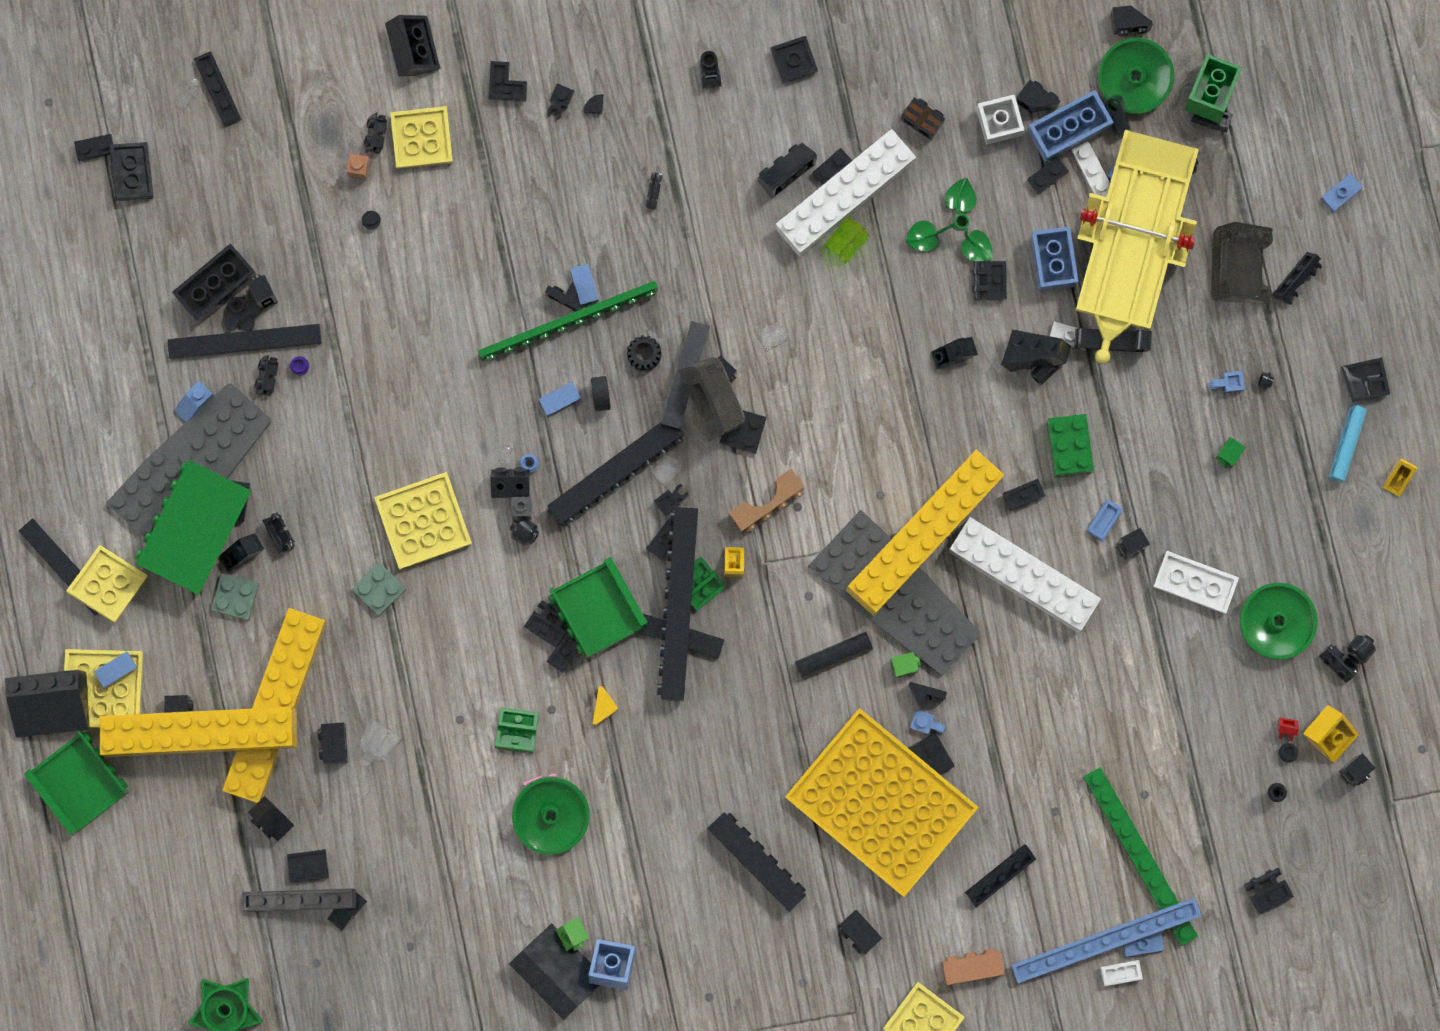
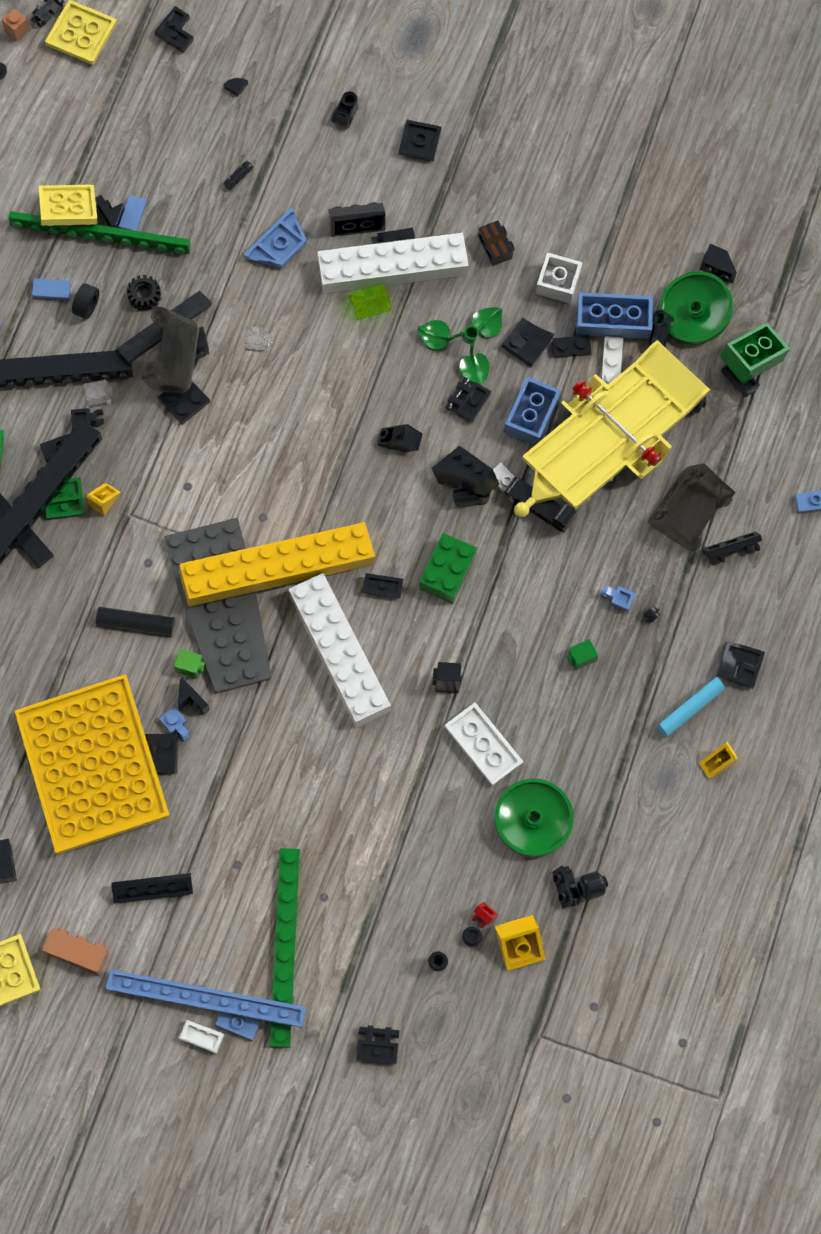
camera: 30 degrees right, 10 degrees down
(525, 313) = (67, 205): none -> light yellow plate
(561, 98) = (212, 65): black plate -> none
(732, 233) = (279, 243): none -> medium blue wing
(746, 515) = (140, 468): medium nougat arch -> none
(1007, 194) = (527, 341): none -> black plate
(1036, 99) = (599, 278): black slope -> none
(1104, 520) = (439, 647): medium blue tile -> none
(1357, 770) = (521, 985): black brick -> none

